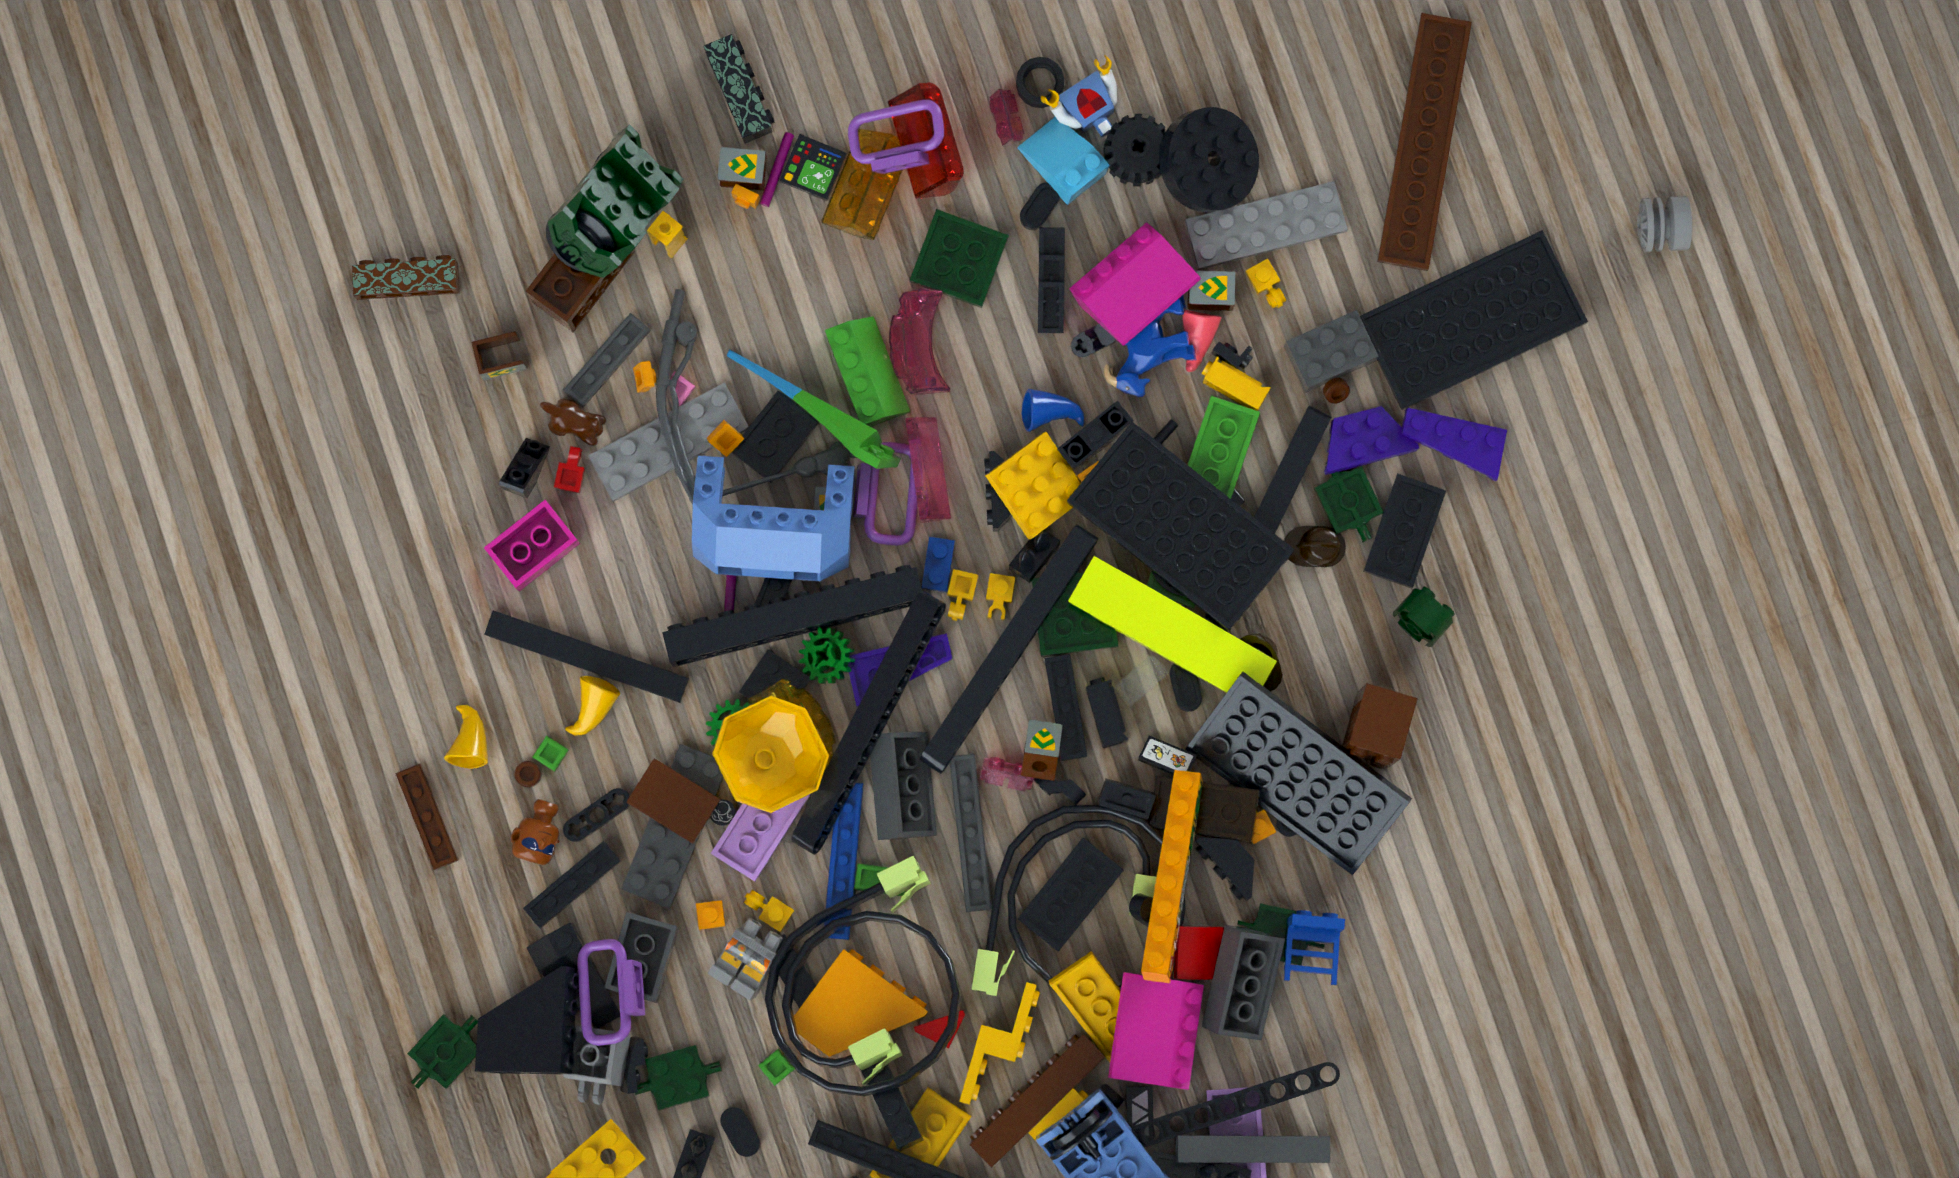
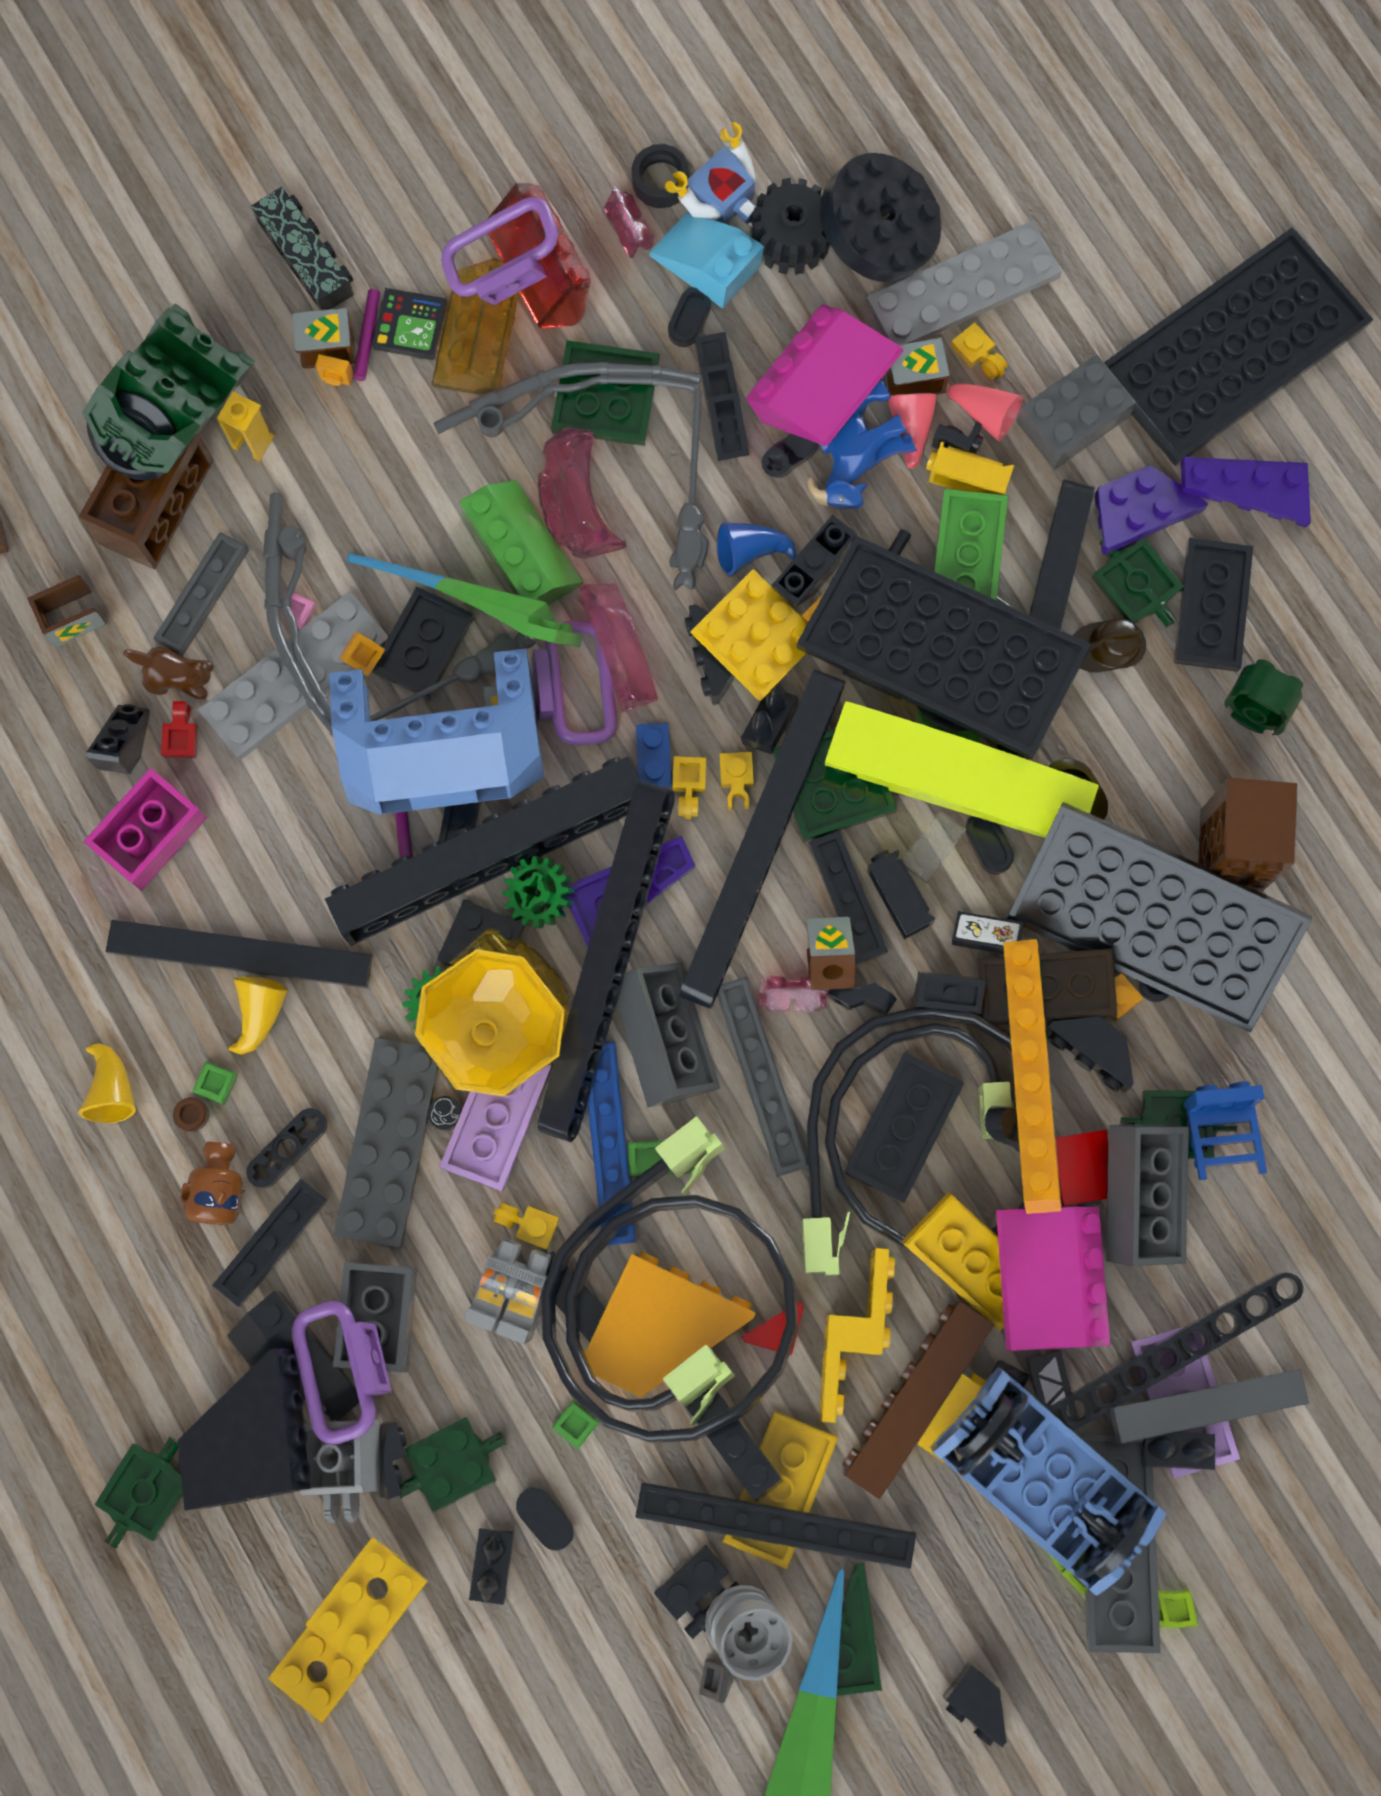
camera: 10 degrees left, 5 degrees down
(427, 817) = (72, 1194): reddish brown tile -> none
(644, 376) = (250, 602): light orange plate -> none
(673, 801) = (379, 1109): reddish brown tile -> none
(710, 915) = (454, 1245): light orange plate -> none
(1002, 396) = (690, 542): none -> dark grey piece
(1261, 334) = (987, 406): none -> coral hat
(1336, 390) = (1092, 456): reddish brown tile -> none
(1424, 142) = (1129, 158): reddish brown plate -> none

